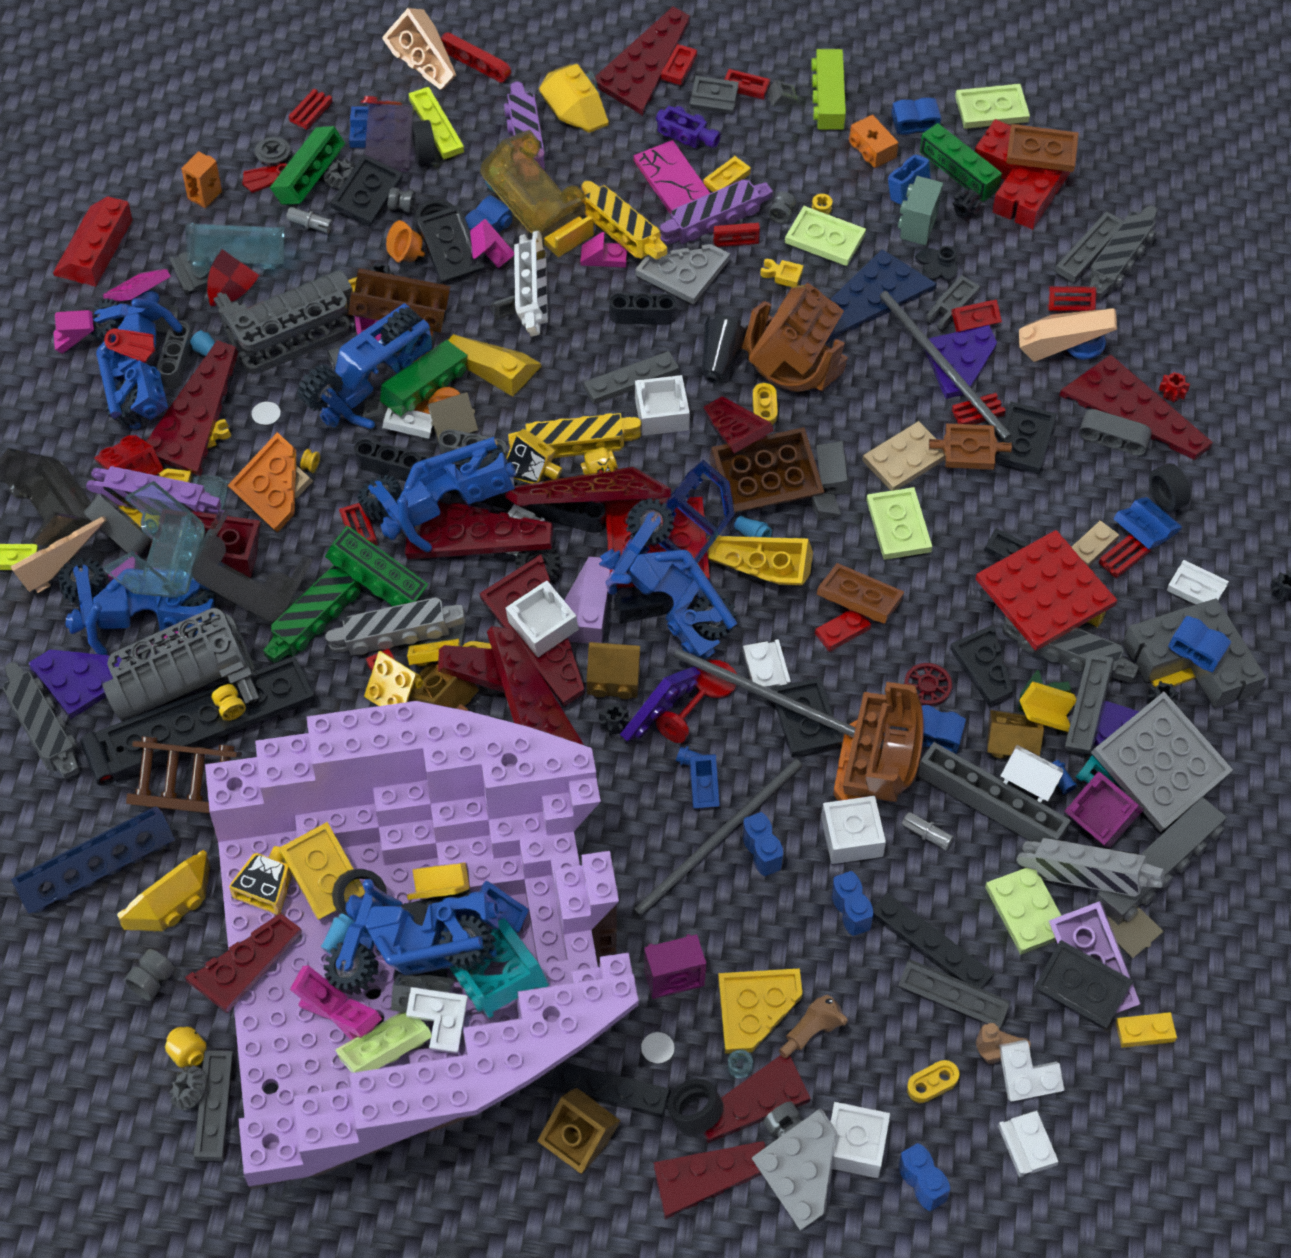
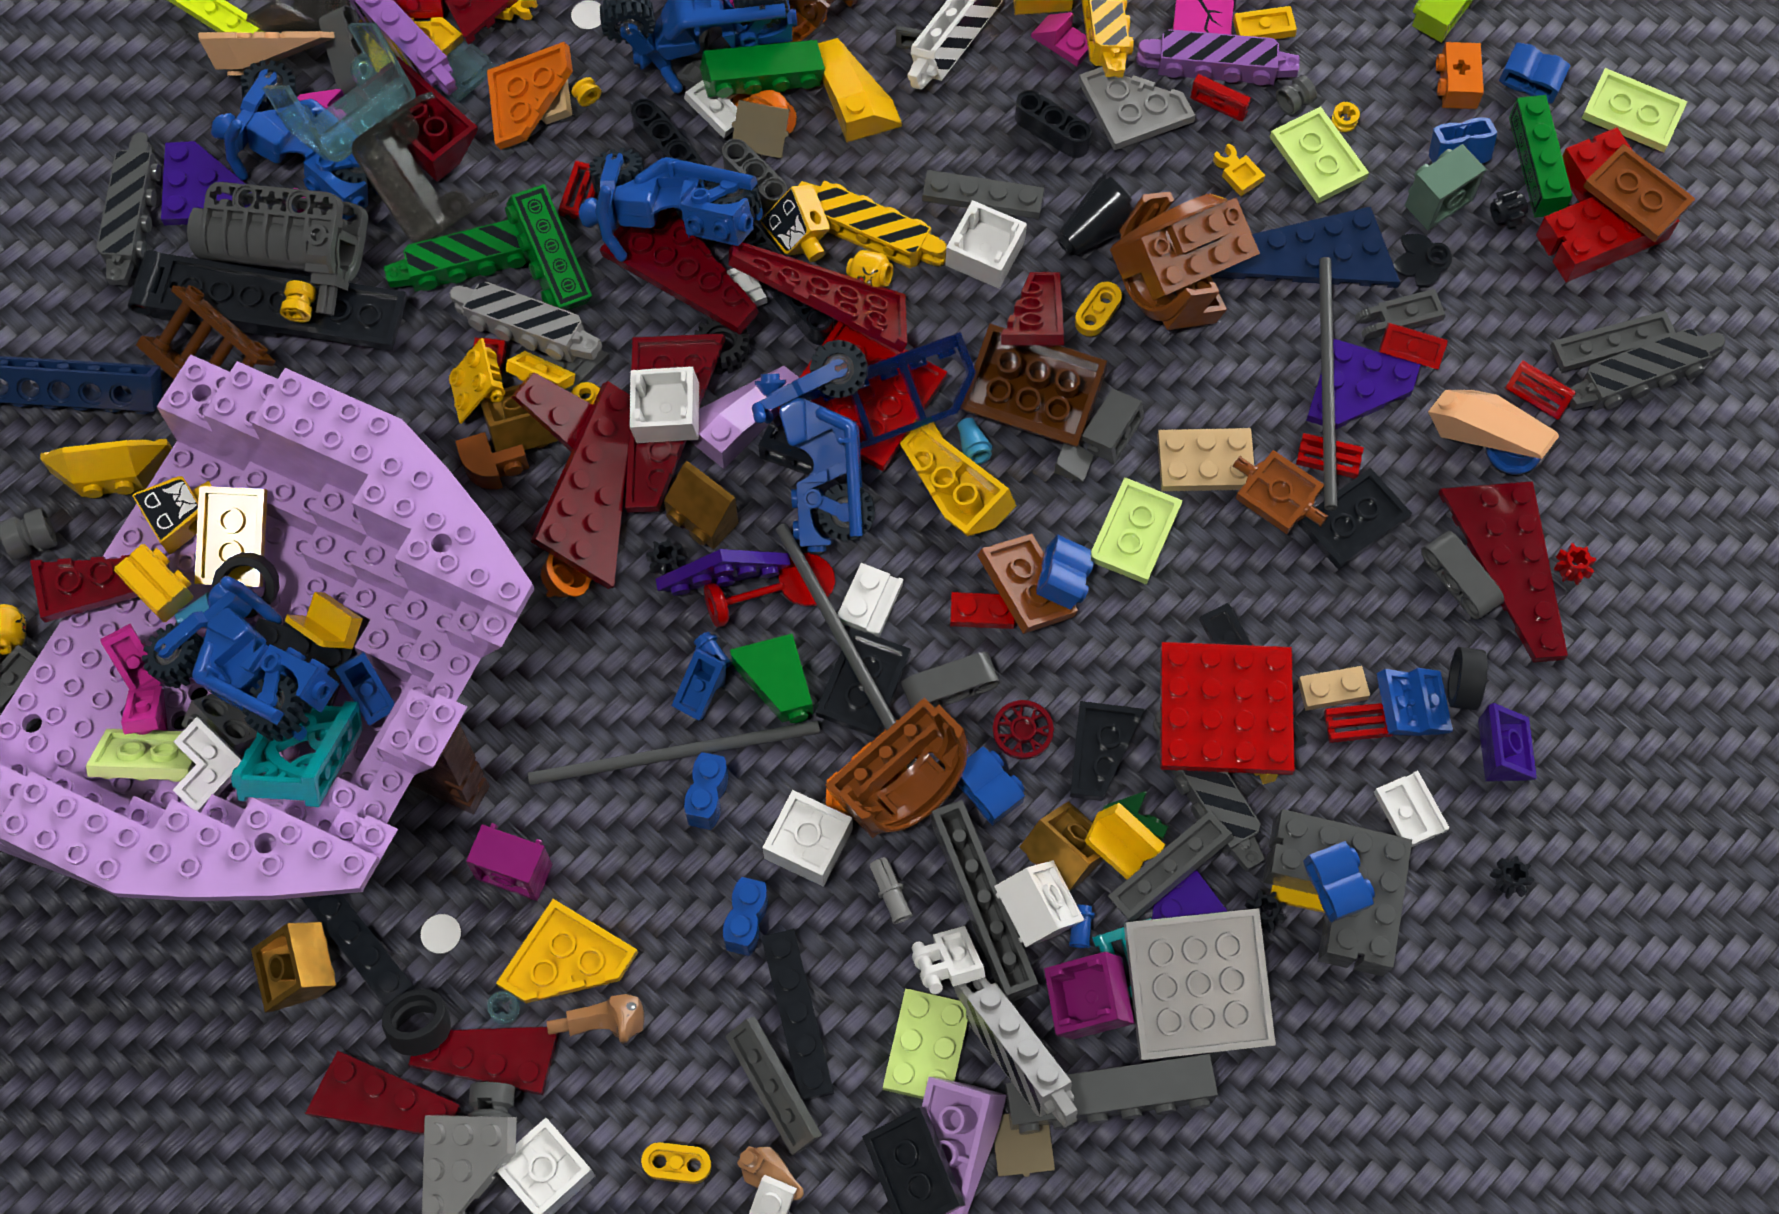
camera: 35 degrees right, 10 degrees up
(295, 931) = (154, 583): none -> yellow brick
(749, 747) = (776, 676): none -> green slope
(863, 678) = (952, 681): none -> dark grey beam
(879, 571) = (1064, 572): none -> blue brick
(1005, 841) = (958, 959): none -> white plate
(1219, 515) = (1506, 745): none -> dark purple slope

